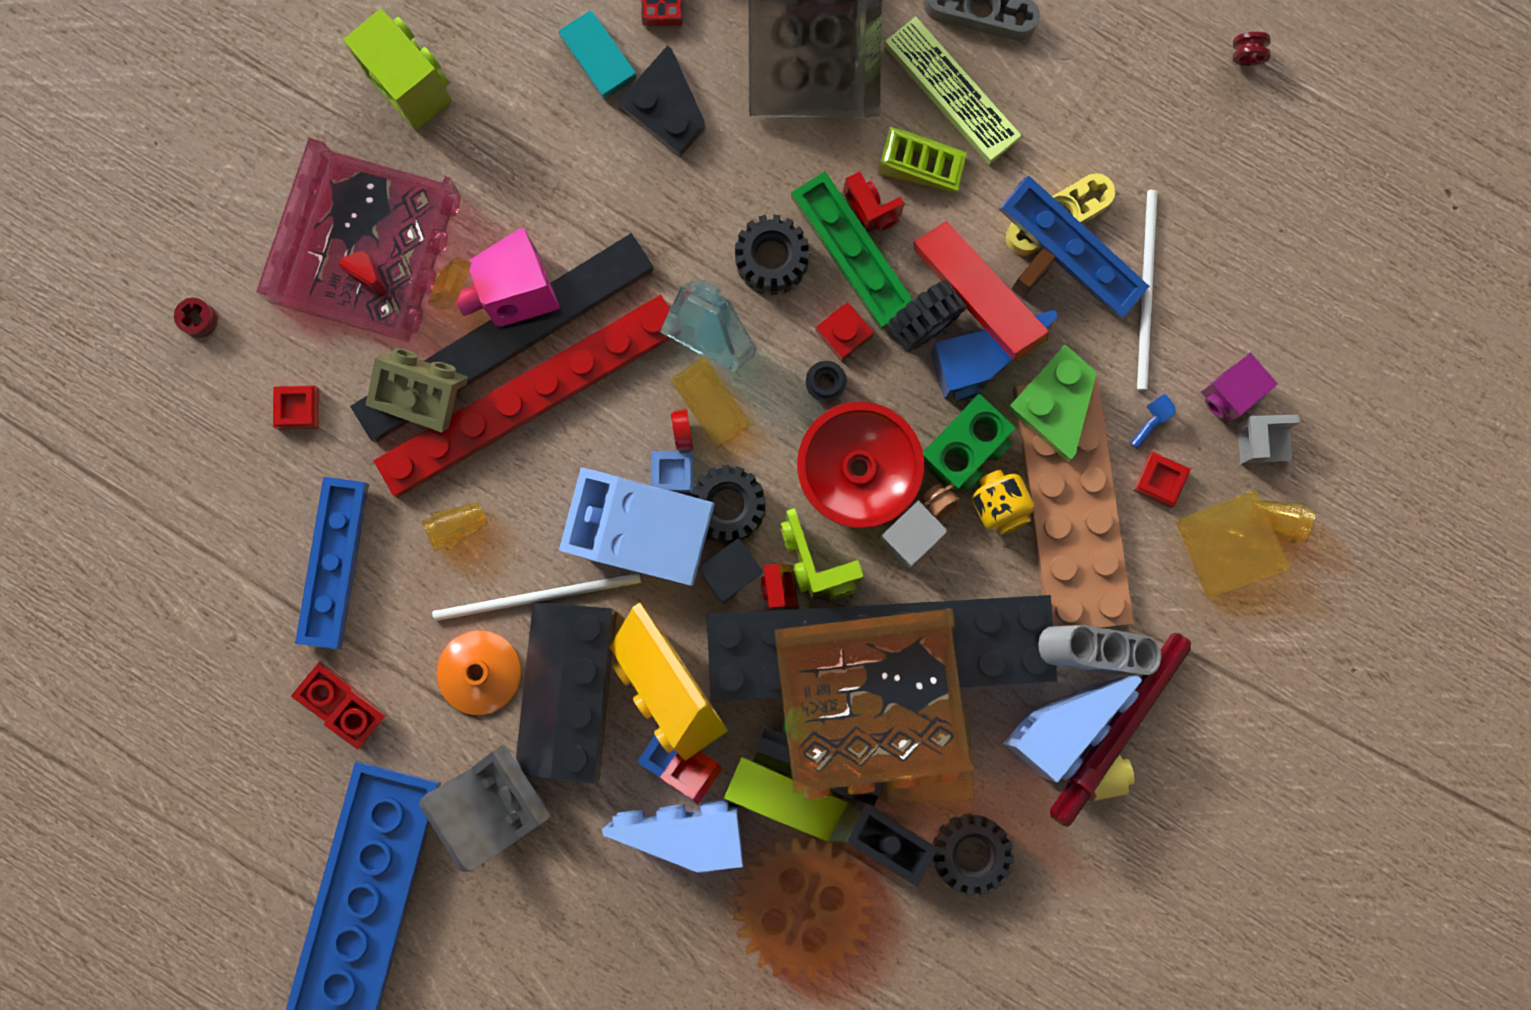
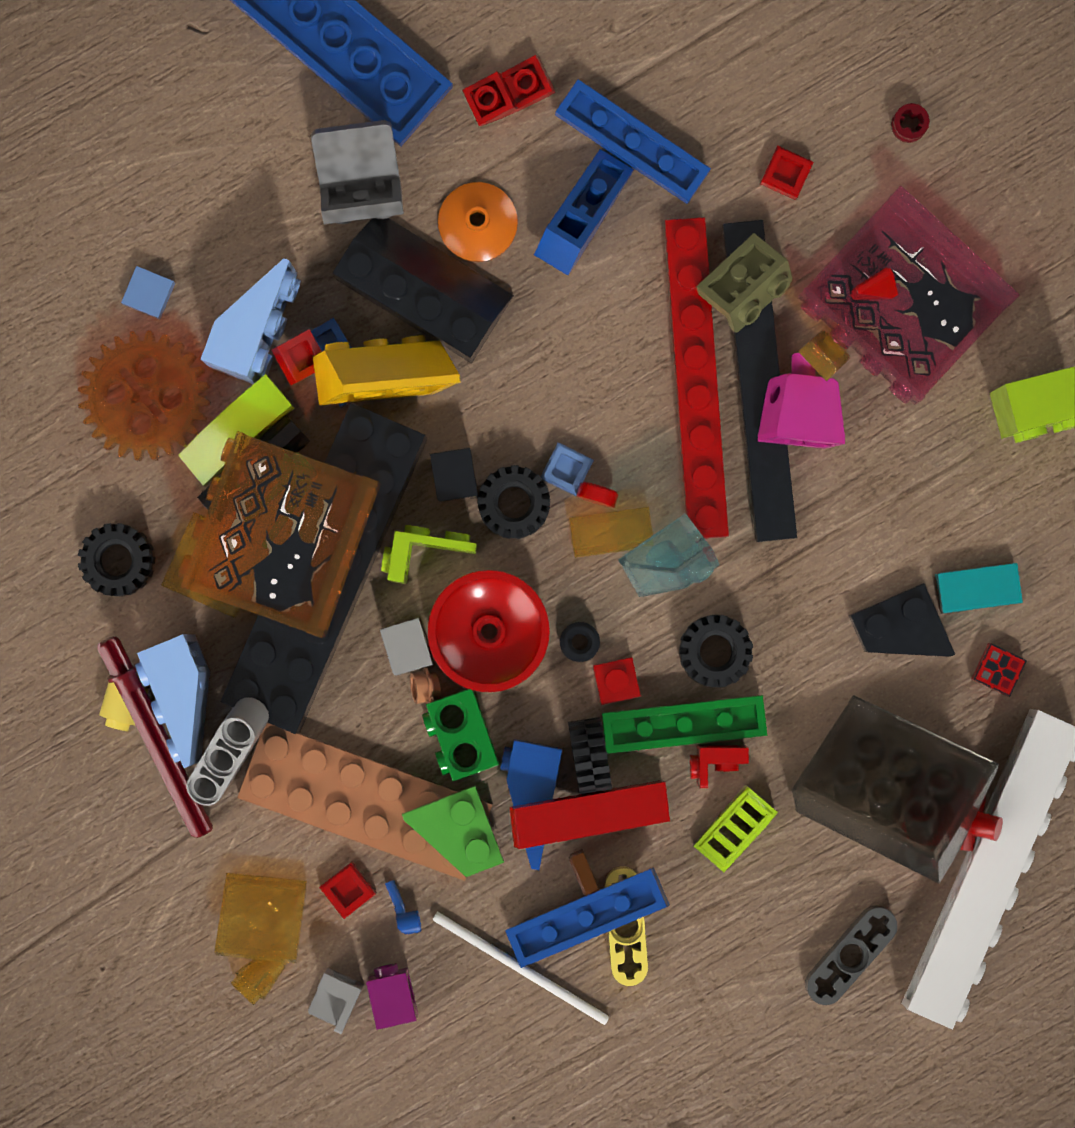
camera: 115 degrees right, 5 degrees up
(422, 575) = (583, 212): none -> blue slope
(453, 525) = (613, 259): clear yellow cone -> none
(536, 597) = (517, 302): white axle -> none
(636, 526) = (530, 413): light blue slope -> none
(700, 957) = (148, 292): none -> medium blue tile
(779, 586) = (420, 510): red plate -> none
(883, 844) = (161, 487): black brick -> none
(952, 90) = (788, 889): yellowish green tile -> none
(1003, 502) = (396, 739): yellow head -> none

